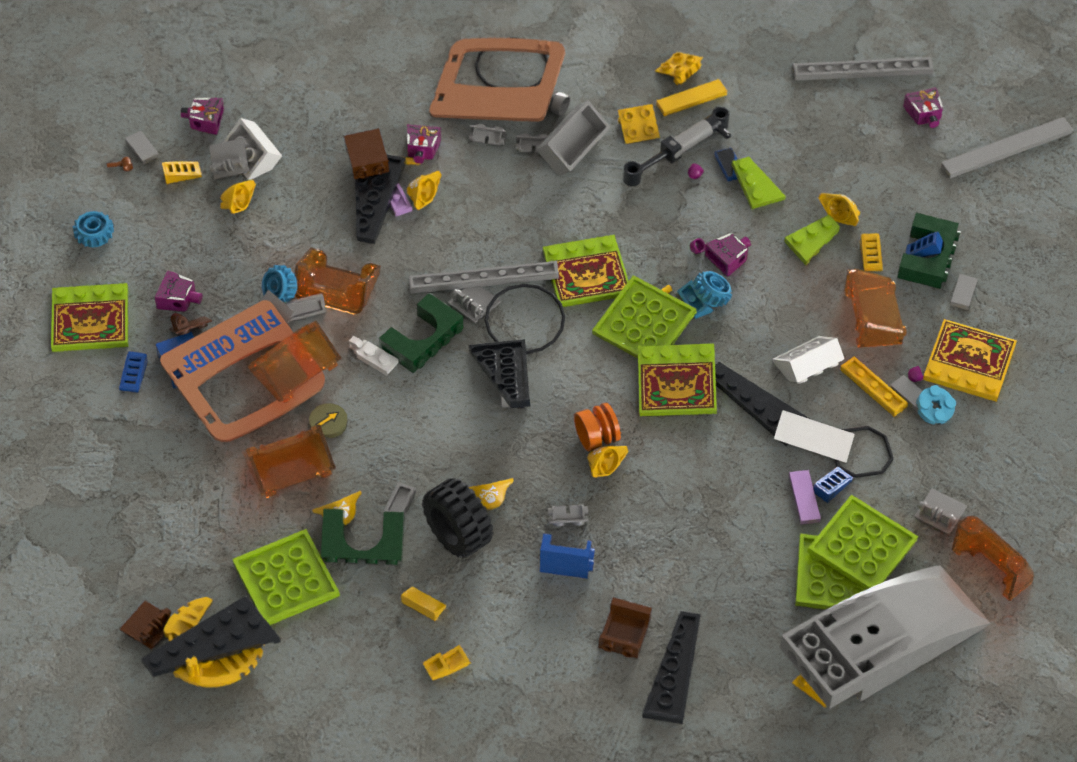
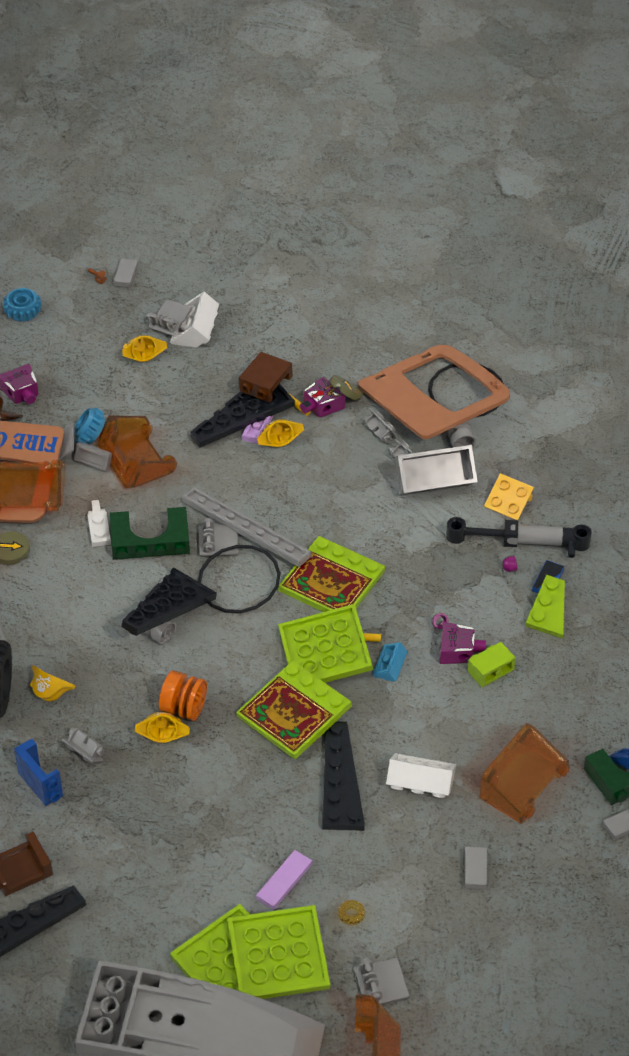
camera: 45 degrees right, 5 degrees down
(171, 175) = (122, 298): yellow slope -> none
(205, 114) = (194, 277): torso -> none
(432, 121) = (347, 388): none -> olive tile
(680, 66) = (603, 473): yellow hinge -> none
(691, 97) = (580, 507): yellow tile -> none
(712, 289) = (406, 660): dark azure gear -> none
(765, 250) = (491, 664): none -> lime brick
(811, 238) = (544, 683): lime wing -> none
(814, 436) = (349, 838): white sticker -> none
(828, 495) = (319, 894): blue slope -> none
(840, 208) = (597, 676): yellow hat -> none
(870, 476) = (351, 920): none -> clear yellow piece
(871, 241) = (589, 720): yellow slope -> none
(874, 386) = (452, 838): yellow tile -> none
(874, 472) = (378, 853): black piece -> none
(915, 374) = (498, 855): magenta hinge -> none
(942, 398) = (474, 902): medium azure plate -> none
(969, 360) = (563, 881): plate -> none

